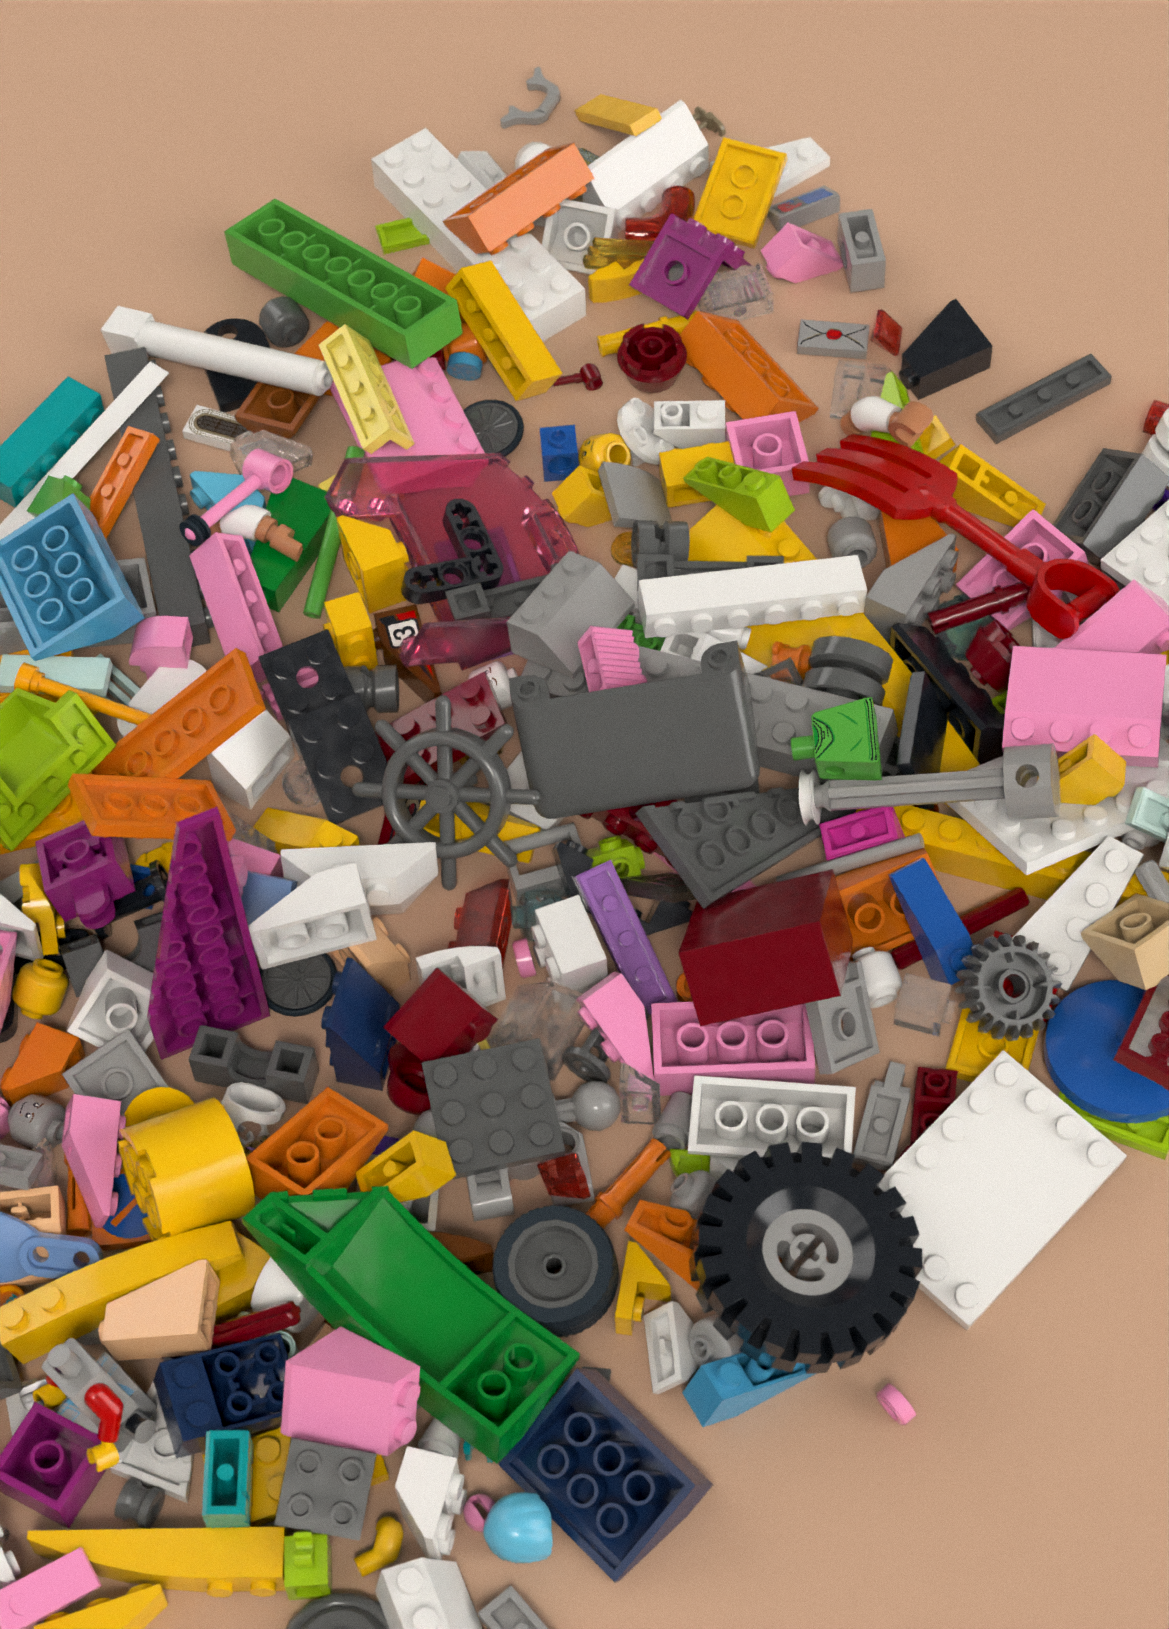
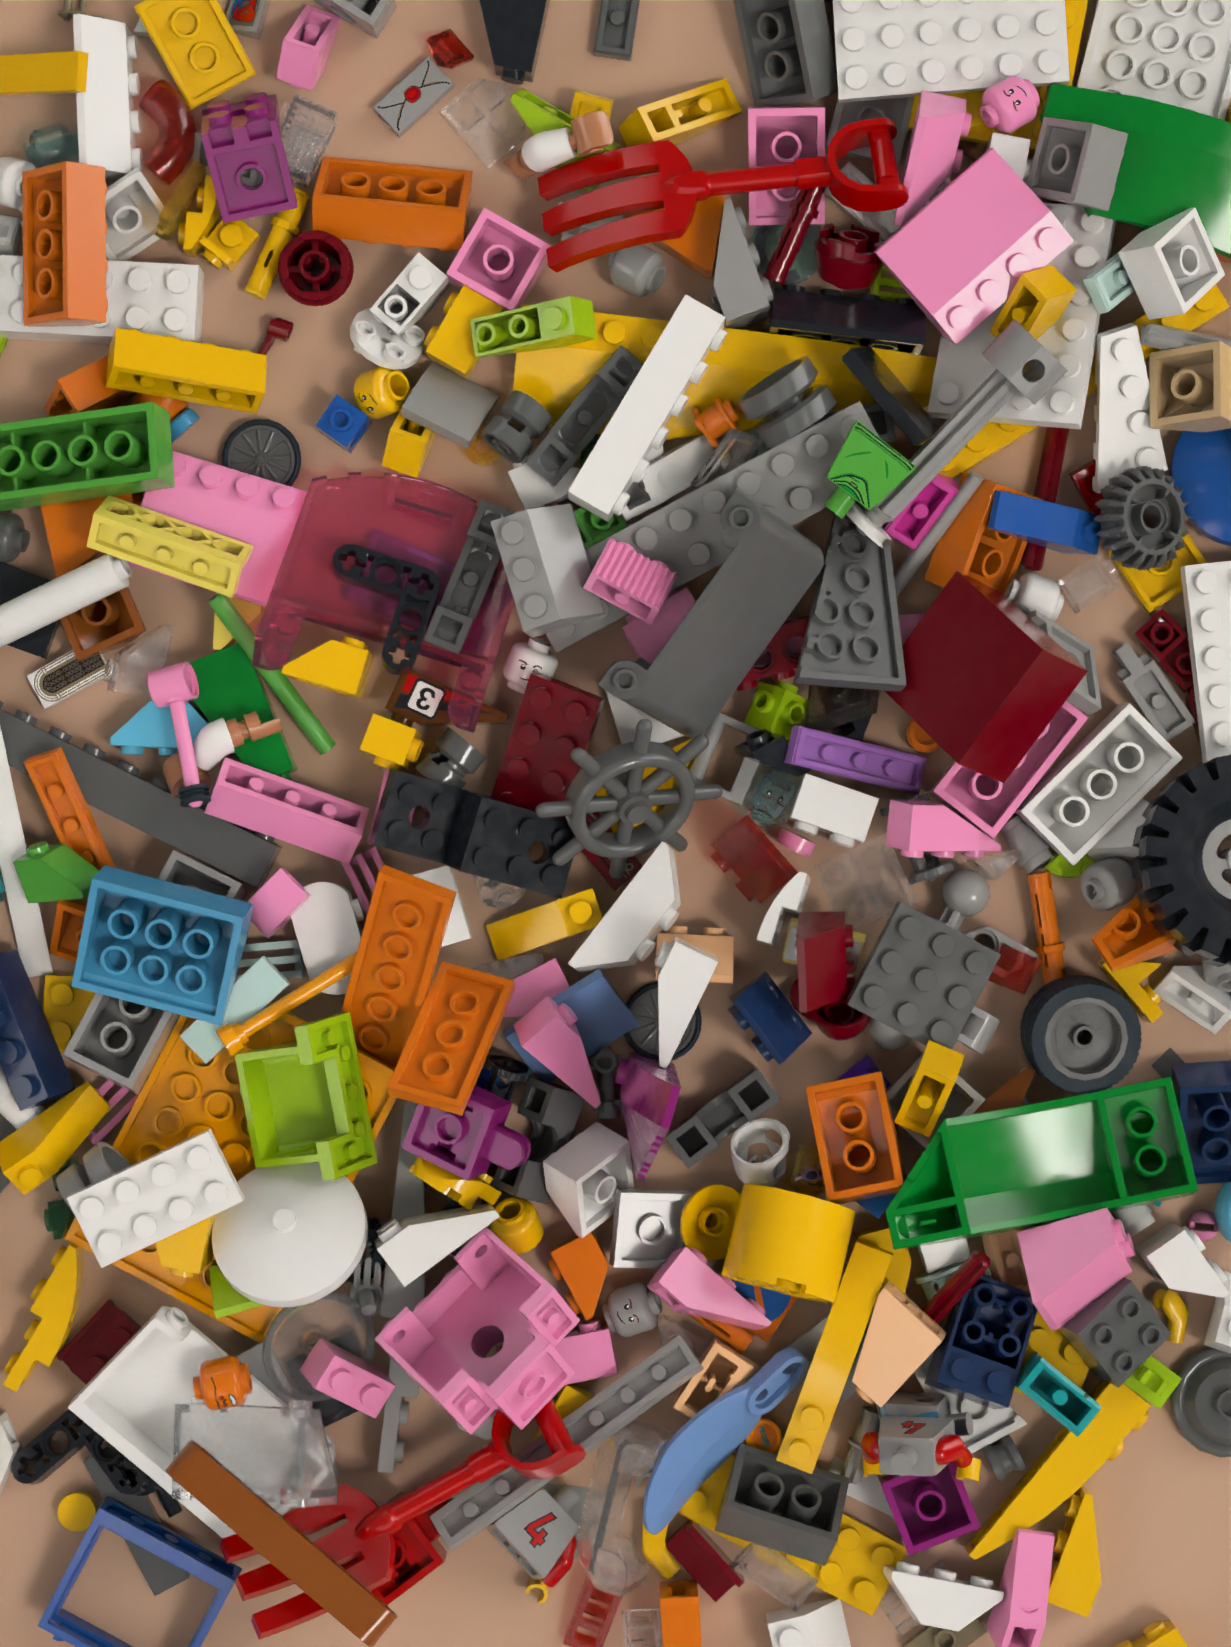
camera: 45 degrees left, 30 degrees up
(620, 309) = (228, 244): none -> yellow bracket

